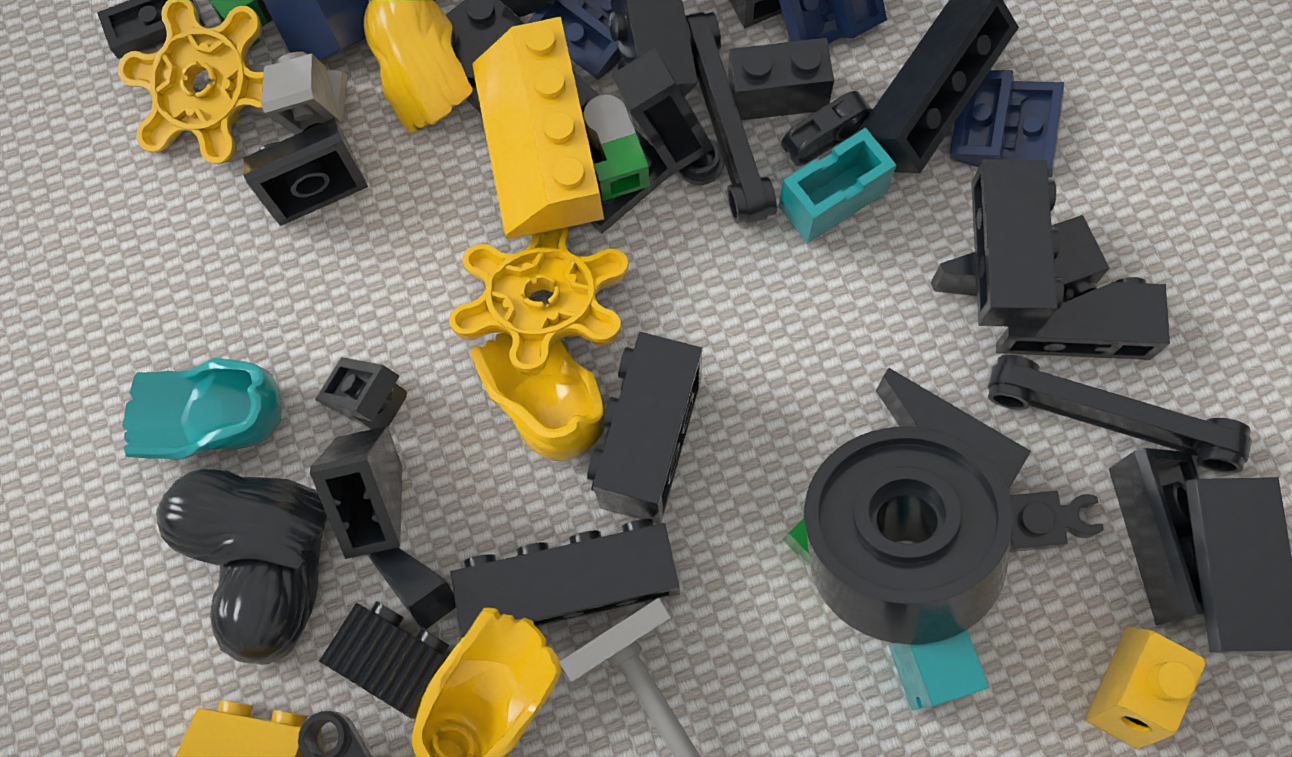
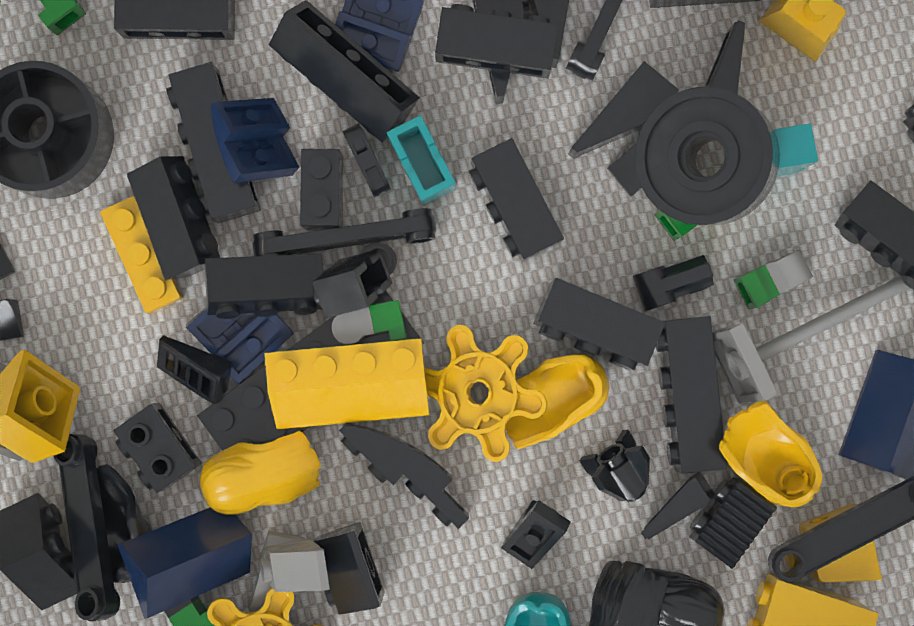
camera: 90 degrees left, 15 degrees up
(361, 491) = (619, 530): black slope -> none
(446, 213) = (394, 458): none -> black slope
(451, 490) = (620, 468): none -> black brick
(717, 525) = (664, 285): none -> black piece
(748, 684) = (772, 279): none -> leg
(803, 313) = (515, 201): none -> black brick
(1043, 522) = (682, 62): black plate -> none
(1044, 576) = (727, 65): none -> black slope

